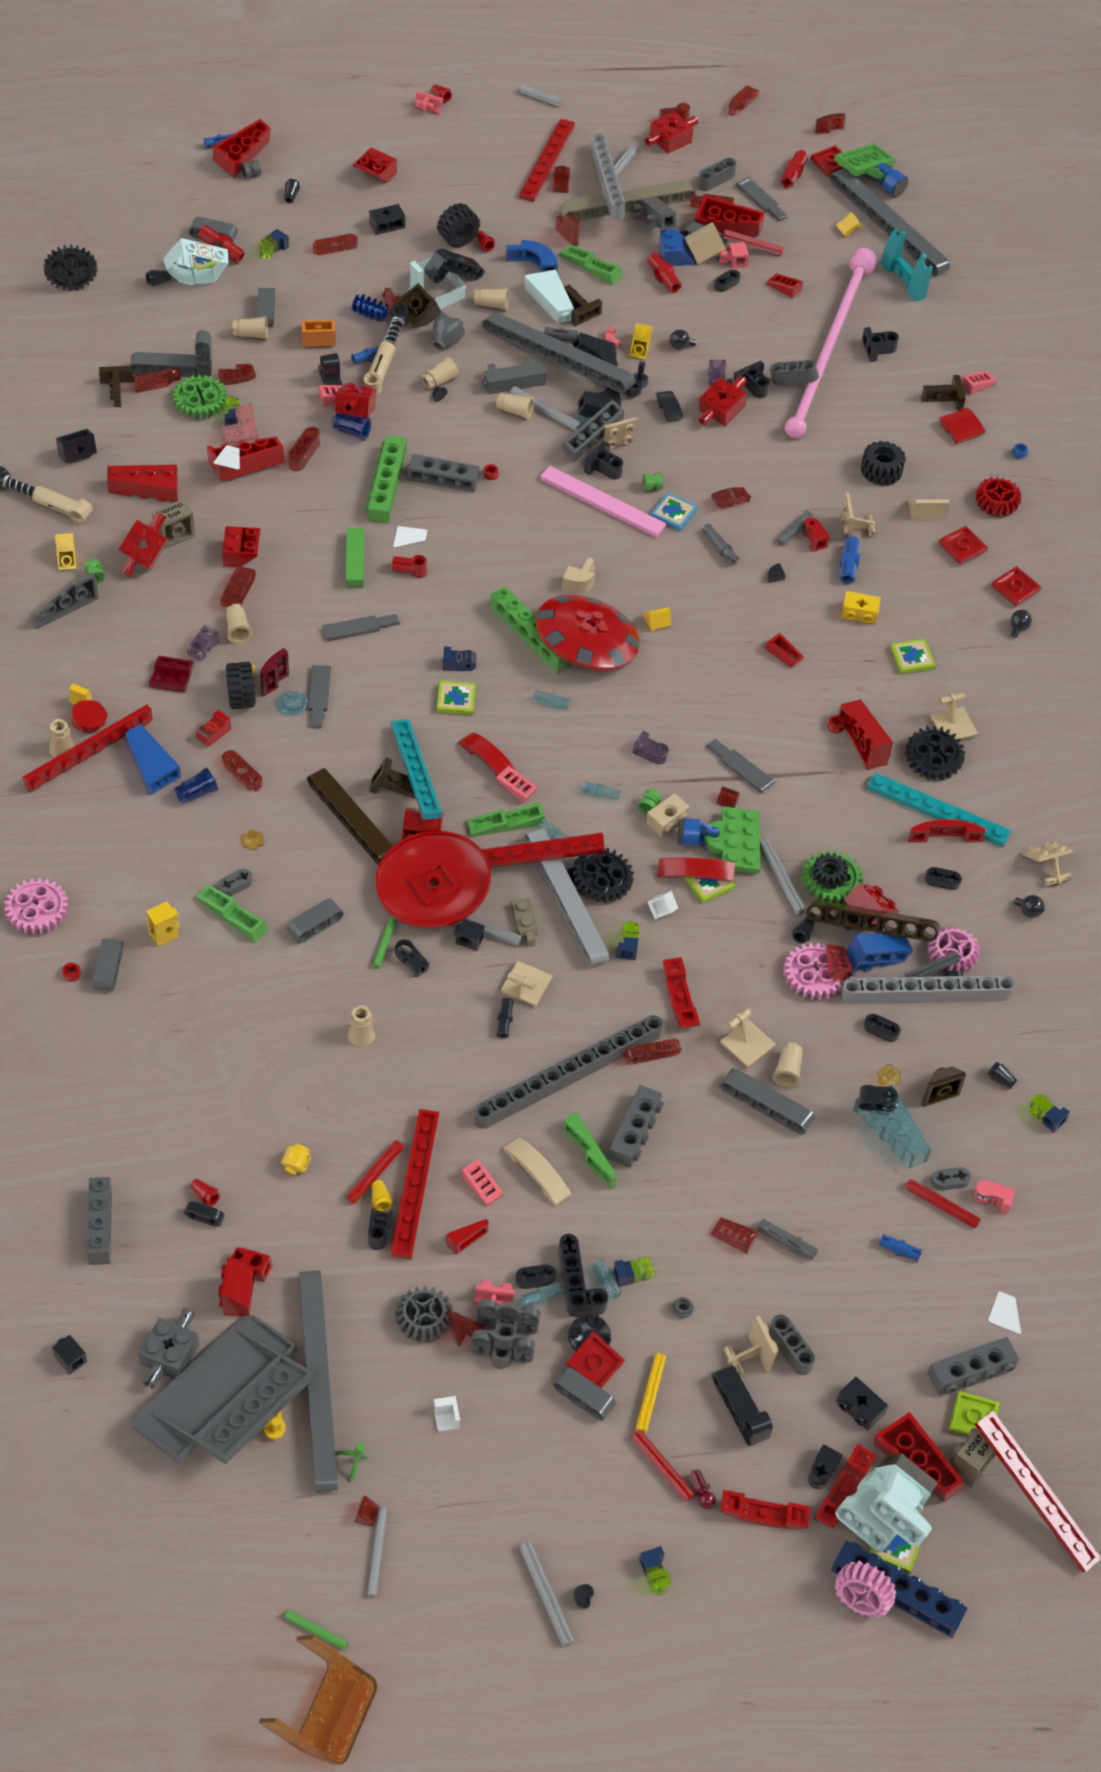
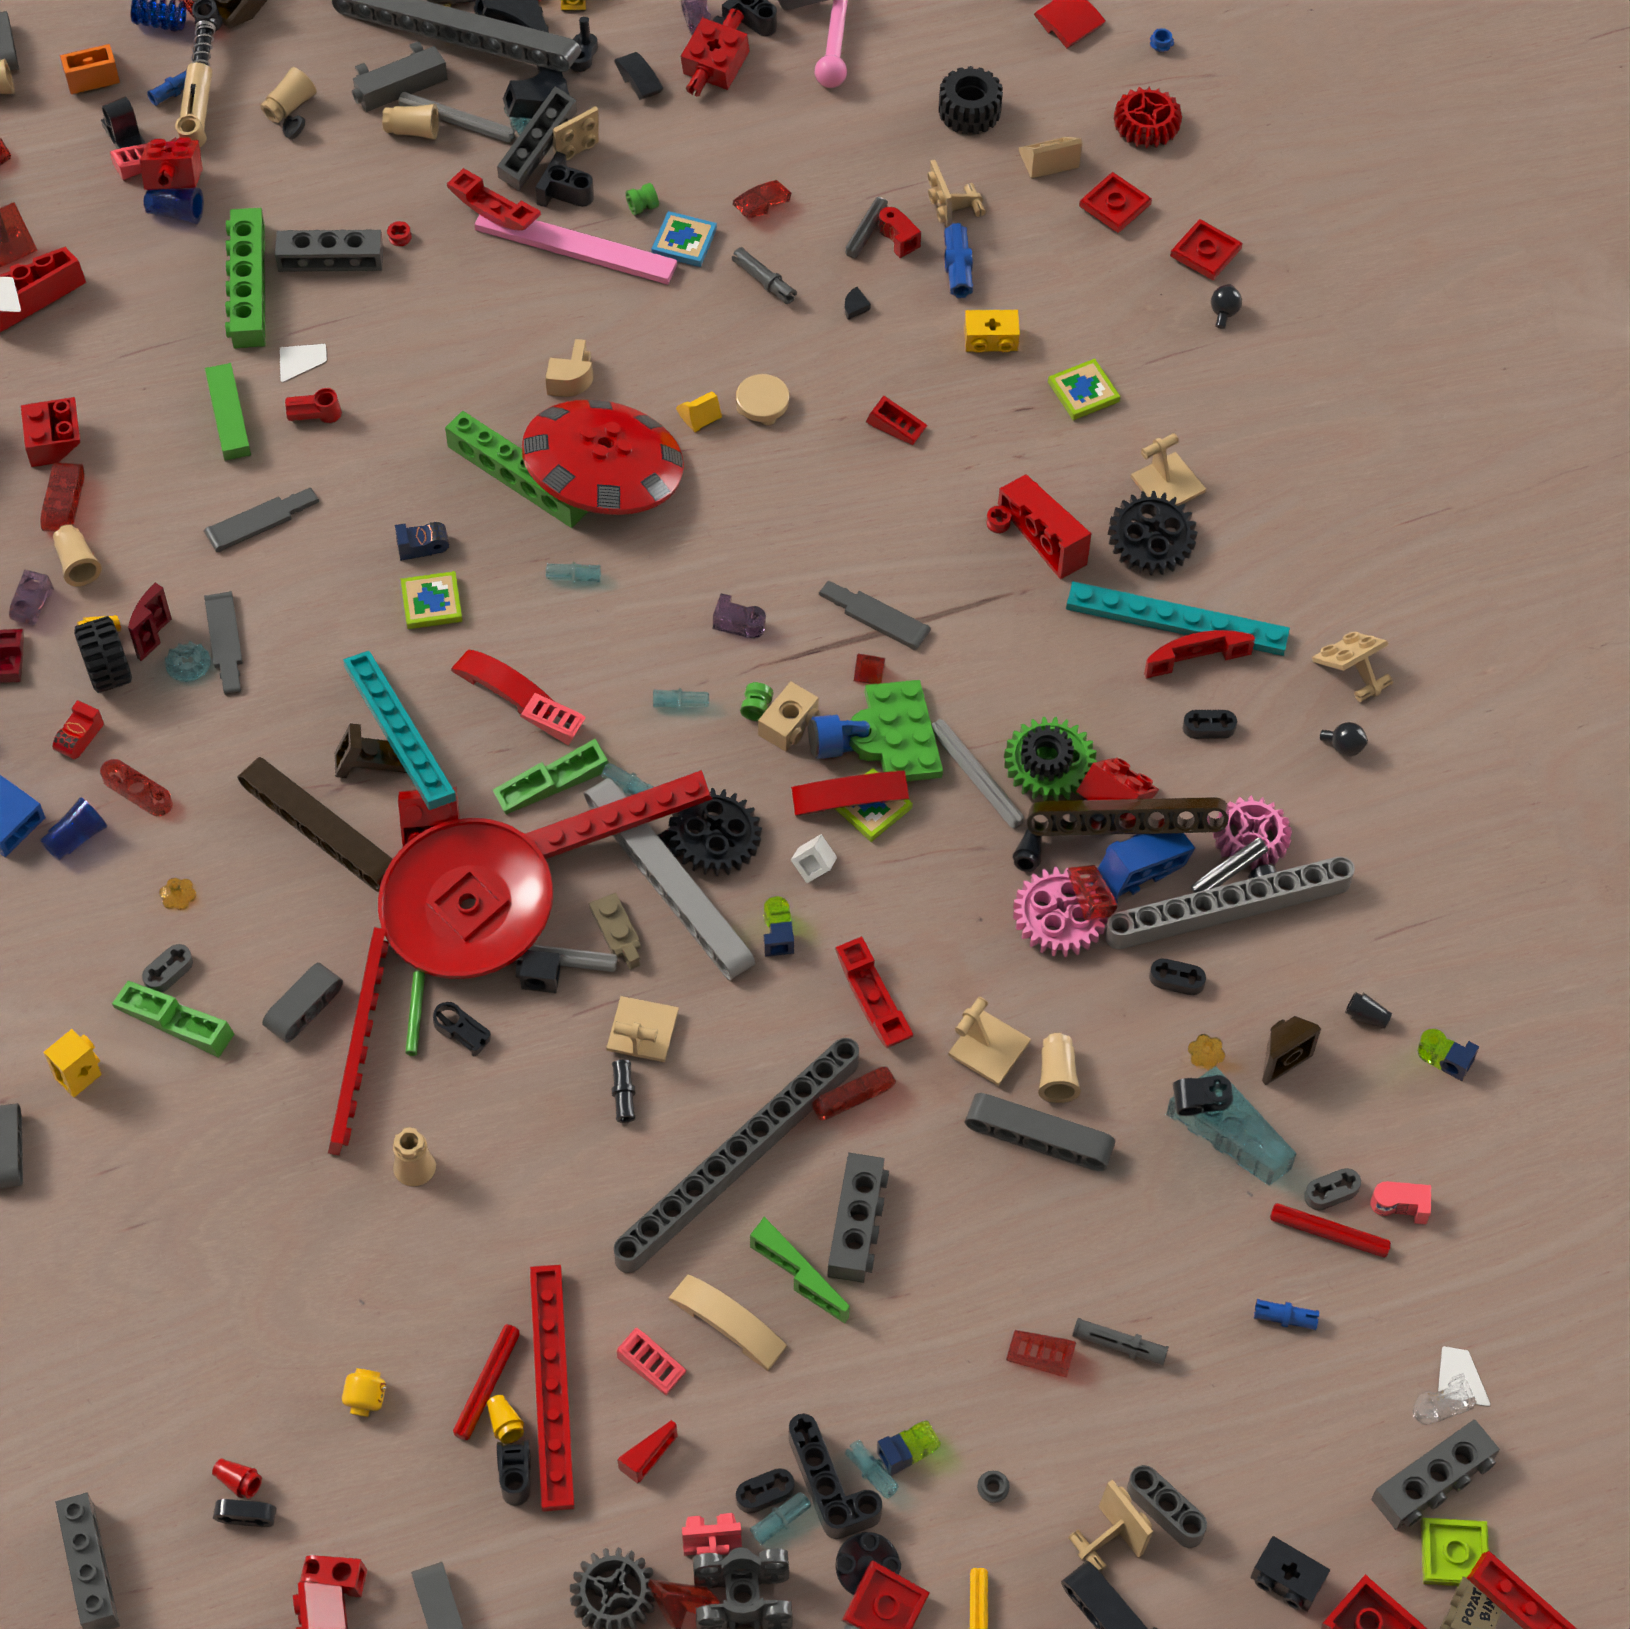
camera: 10 degrees left, 5 degrees up
(304, 448) = (111, 255): clear red beam -> none
(342, 957) = (357, 1052): none -> red plate
(447, 331) = (282, 27): dark grey piece -> none
(553, 465) = (489, 204): none -> red slope
(700, 619) = (762, 398): none -> tan tile
(990, 1324) = (1444, 1404): none -> clear leg

